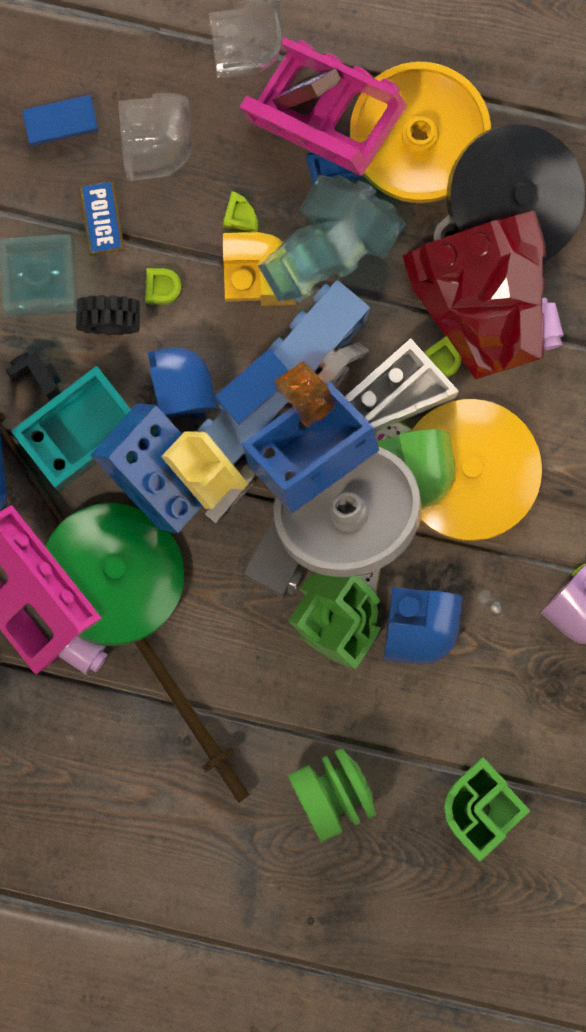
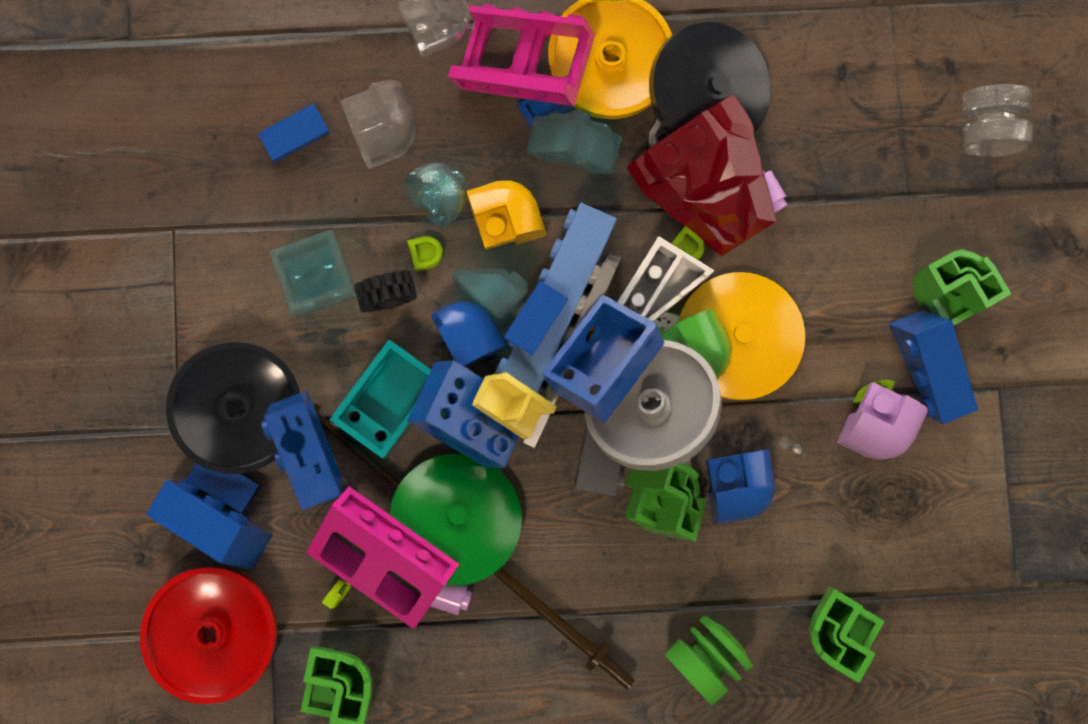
camera: 25 degrees left, 0 degrees up
(45, 375) = (344, 360): black bracket -> none
(101, 218) = (355, 208): tile -> none
(195, 225) = (439, 191): none -> clear light blue cylinder
(220, 346) = (493, 290): none -> clear light blue slope
(240, 215) = (475, 171): lime tile -> none
(305, 393) = (585, 311): clear orange bracket -> none
(307, 90) = (503, 44): reddish brown tile -> none
(312, 257) = (552, 188): clear light blue brick -> none

